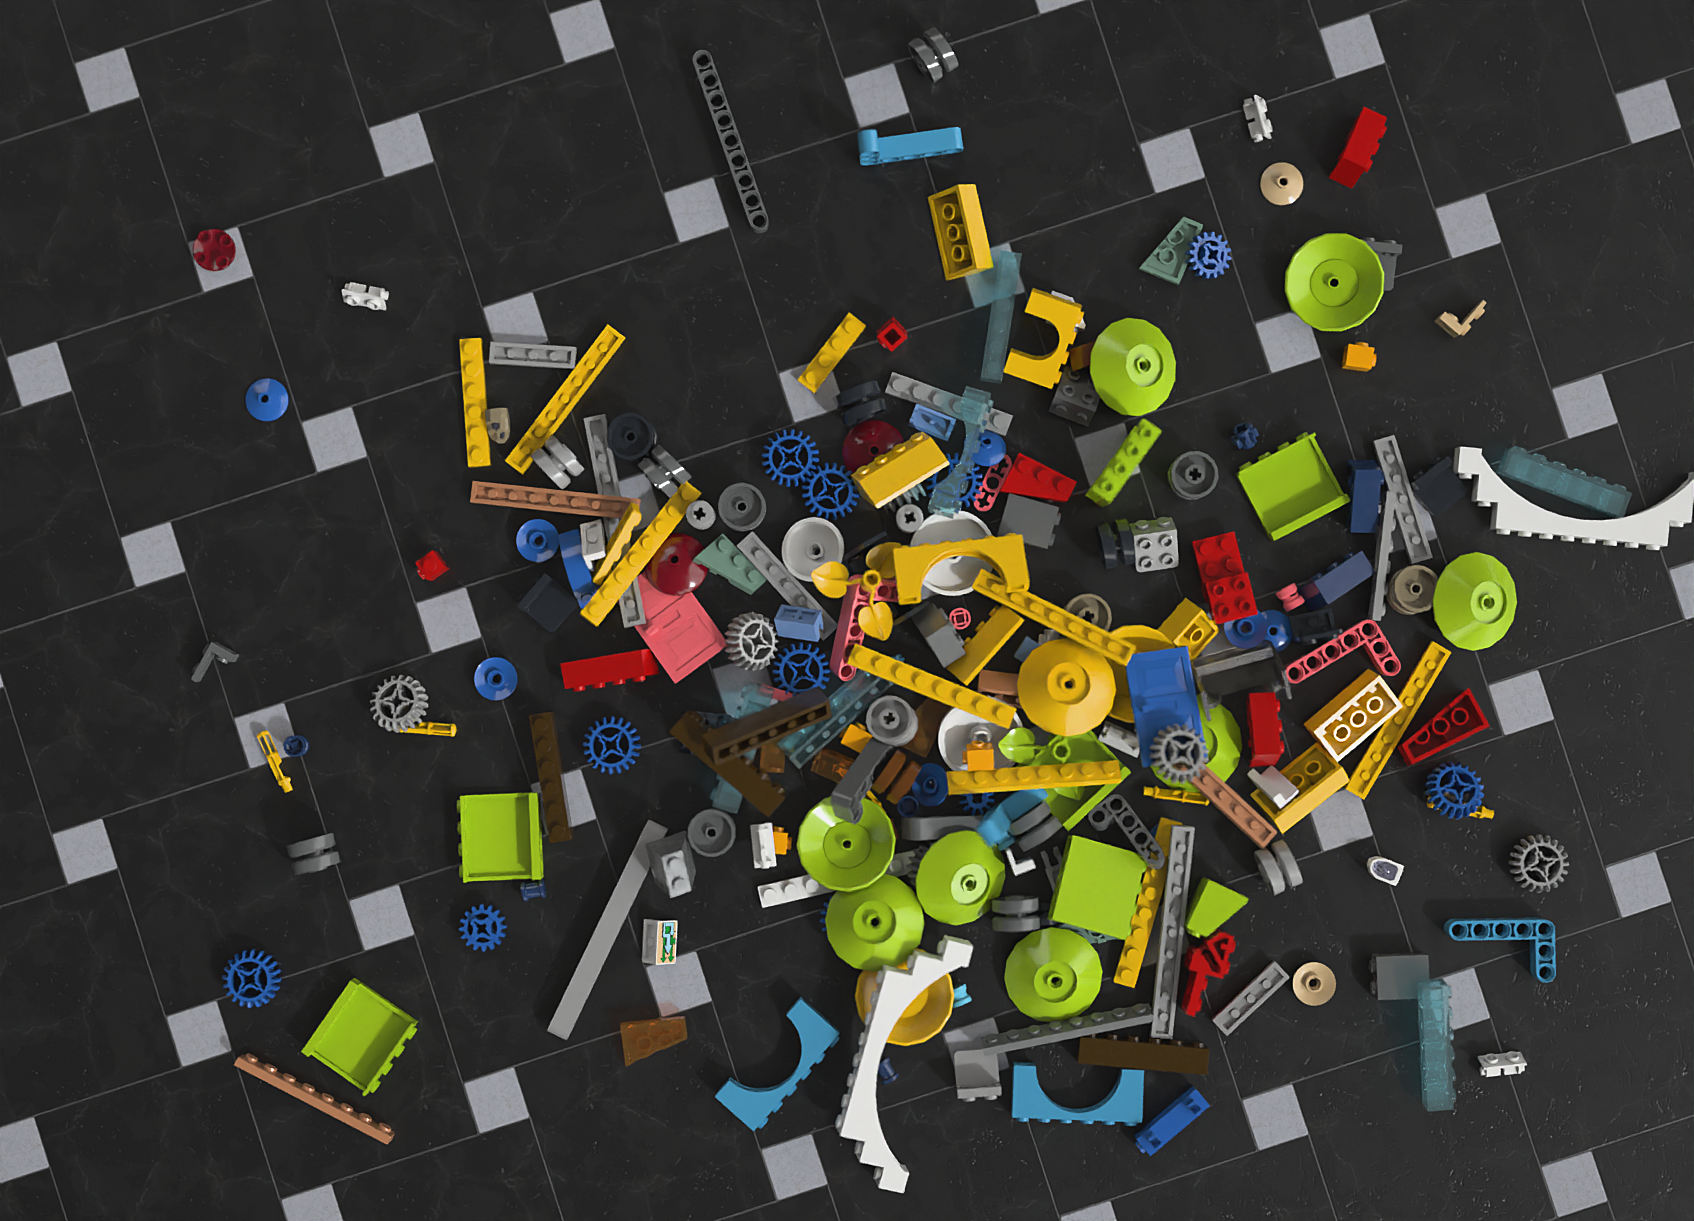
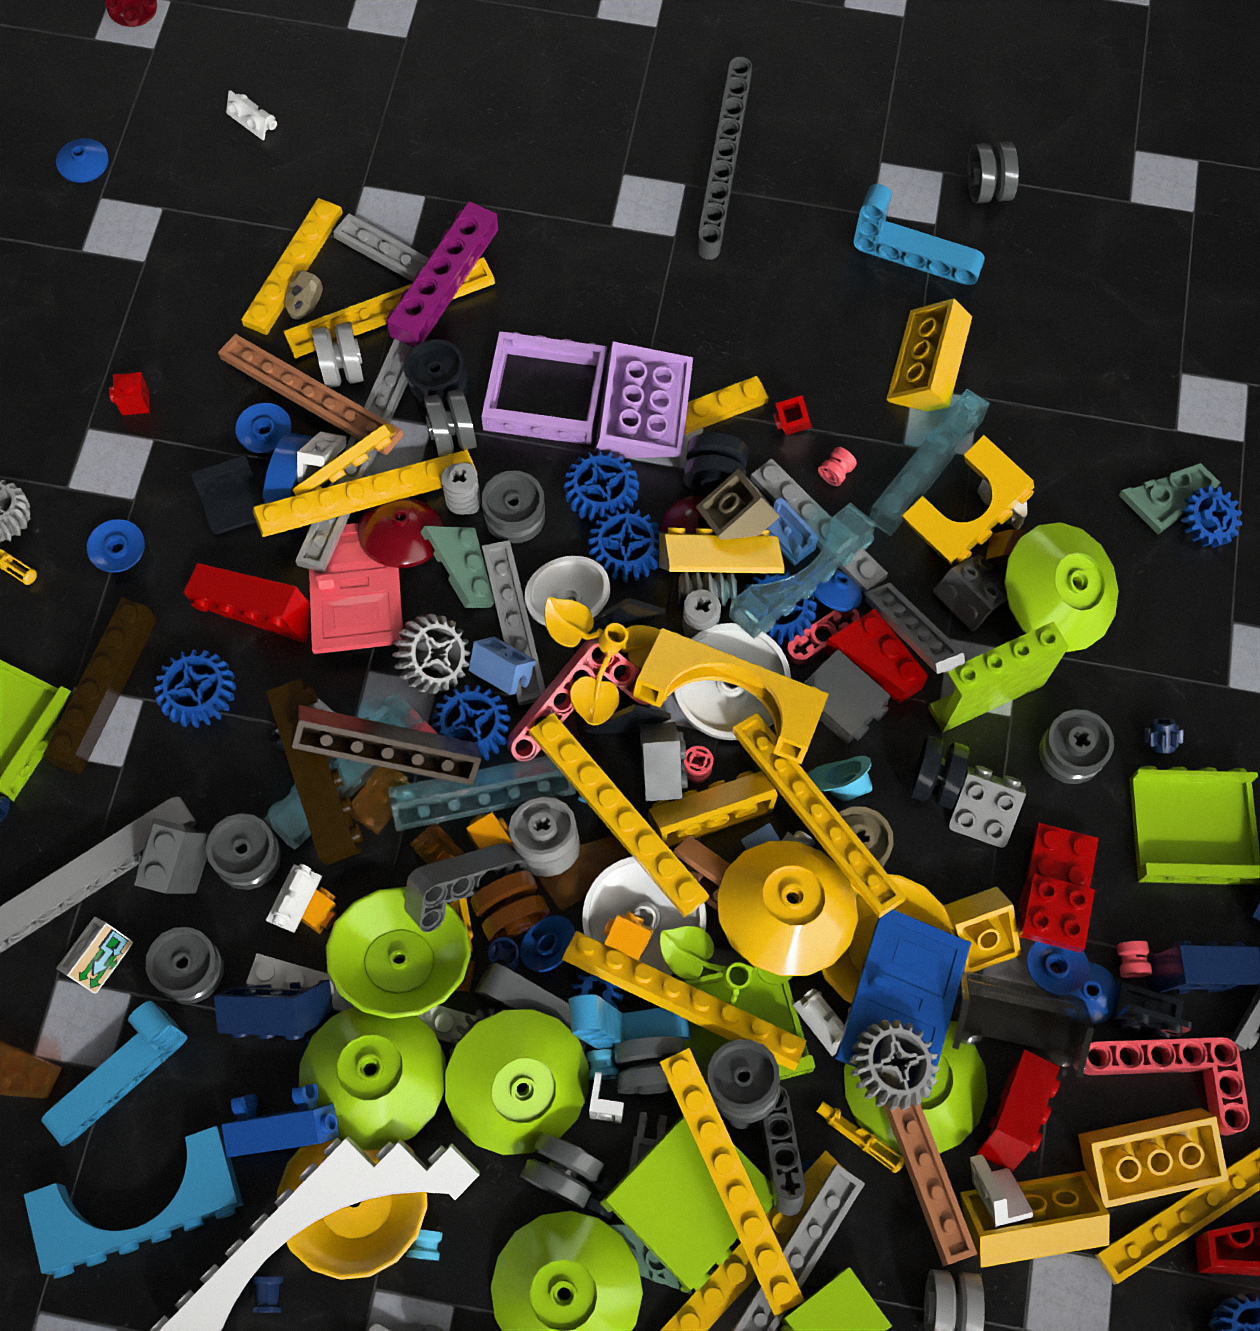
camera: 20 degrees right, 20 degrees down
(598, 412) = (468, 238): none -> magenta brick
(687, 373) = (541, 425): none -> lavender window
(721, 1004) = (155, 1041): none -> dark azure beam
(722, 906) = (188, 948): none -> dark grey wheel
(785, 380) = (643, 403): none -> lavender slope
(793, 917) = (273, 1010): none -> dark blue wedge
(841, 982) = (279, 1130): none -> blue brick
(895, 434) = (737, 509): none -> dark tan slope
(940, 354) = (835, 468): none -> coral wheel
(1053, 460) = (915, 628): none -> light grey plate
(1053, 578) = (844, 778): none -> medium azure piece
(1108, 808) = (739, 1062): none -> dark grey wheel
(1116, 868) = (732, 1182): none -> yellow plate

